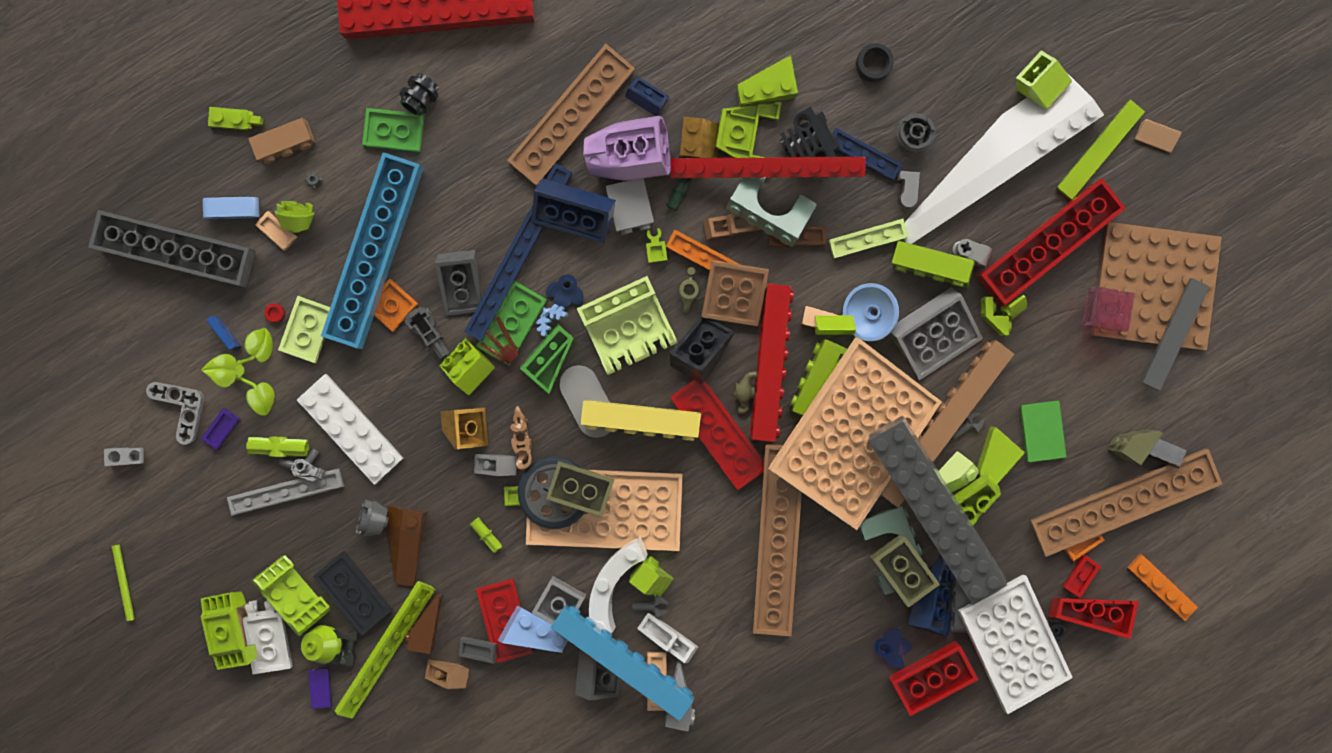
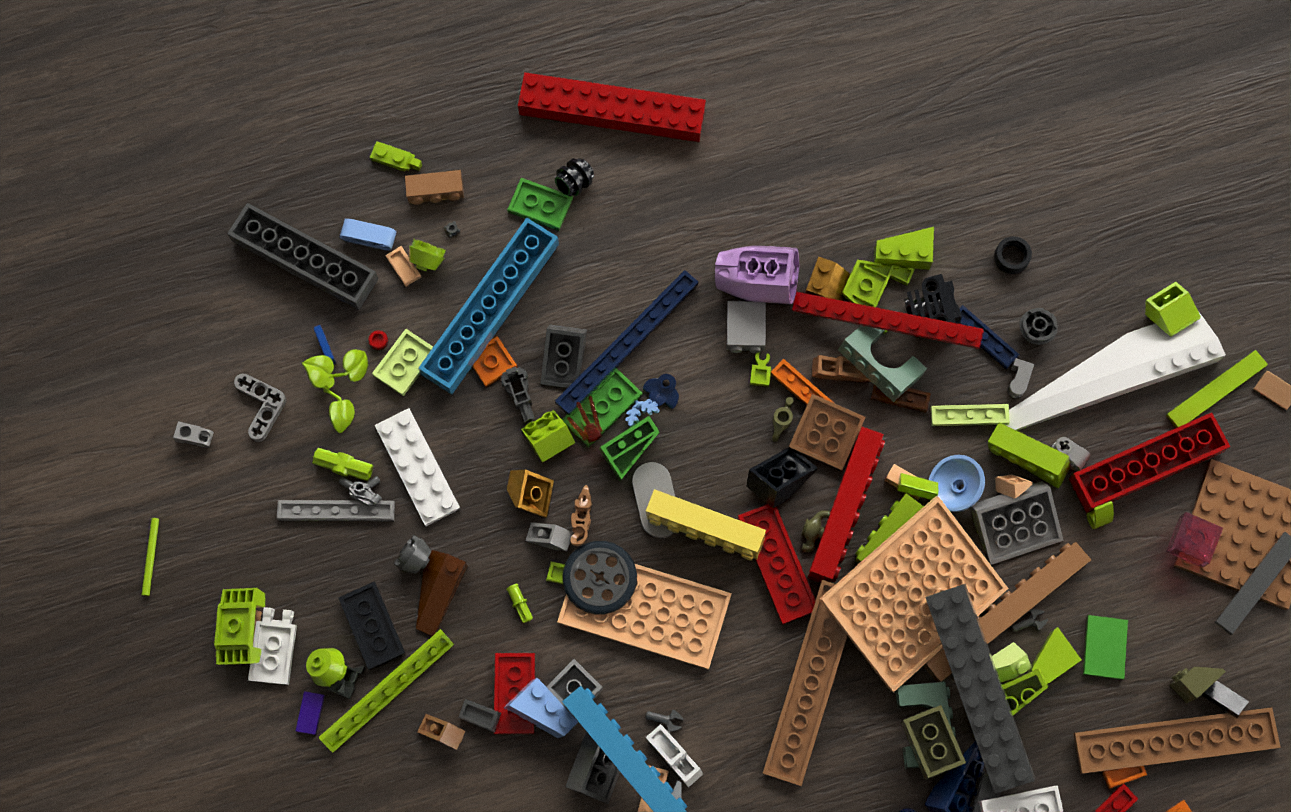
camera: 15 degrees right, 15 degrees down
(220, 429) = (292, 434): dark purple tile -> none
(290, 595) = (311, 610): lime plate -> none
(423, 633) = (432, 680): reddish brown slope -> none
(571, 114) = (711, 231): medium nougat plate -> none
(572, 210) = (690, 314): dark blue slope -> none
(580, 488) = (627, 575): olive brick -> none
(601, 596) = (631, 675): white brick -> none
(626, 324) = (714, 433): yellowish green slope -> none
(646, 96) = (787, 232): dark blue slope -> none
(650, 577) = (674, 685): lime wedge -> none
(678, 193) = (795, 327): clear green axle -> none
(924, 300) = (1012, 485): none -> light nougat slope
(1000, 324) = (1081, 527): lime slope -> none

